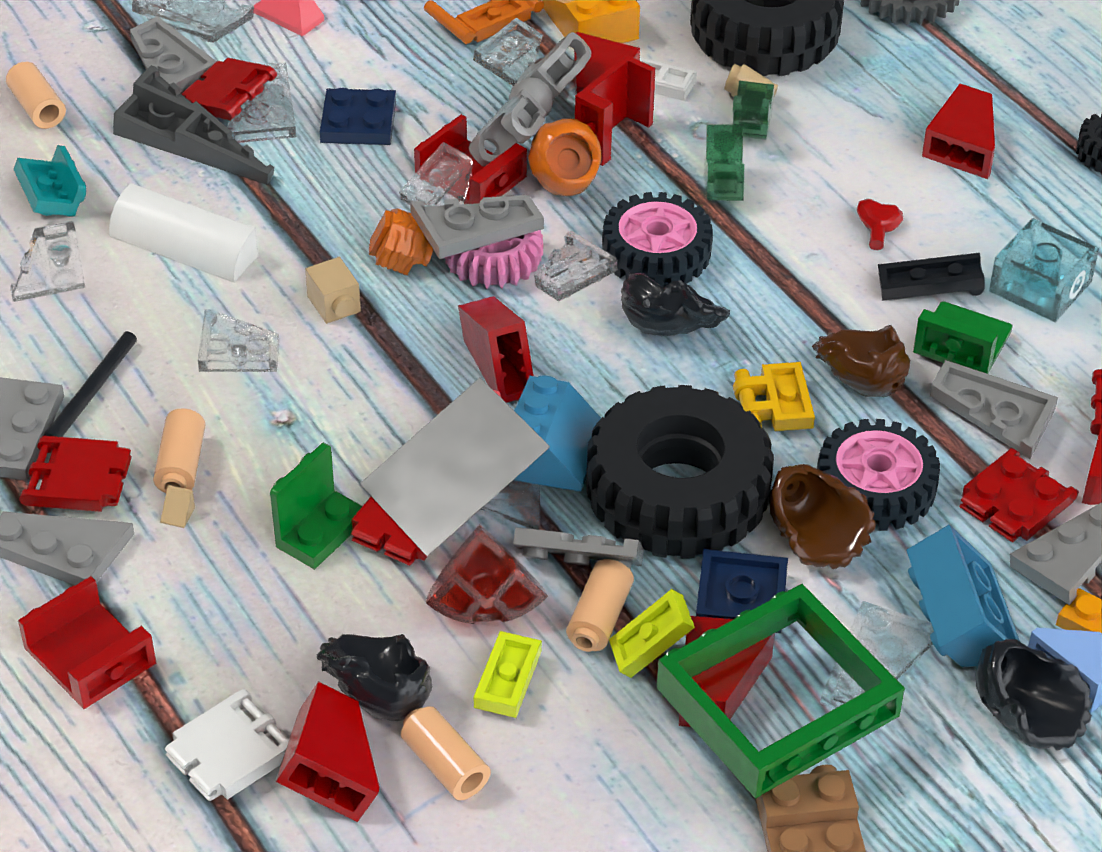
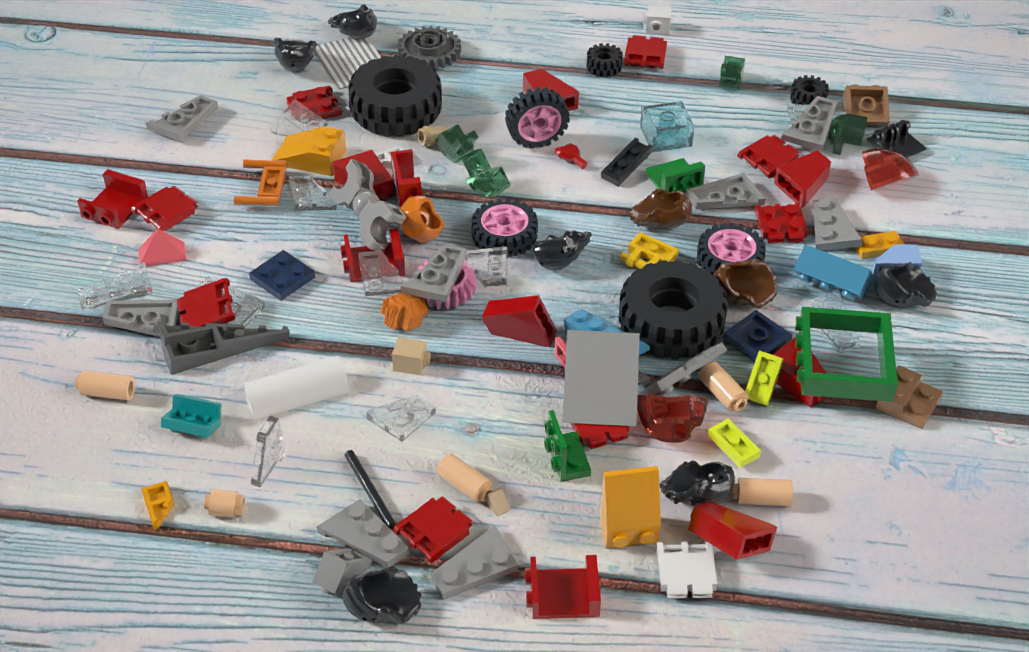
camera: 50 degrees left, 0 degrees up
(251, 621) = (631, 507): none -> light orange slope
(876, 139) = (537, 117): none -> wheel

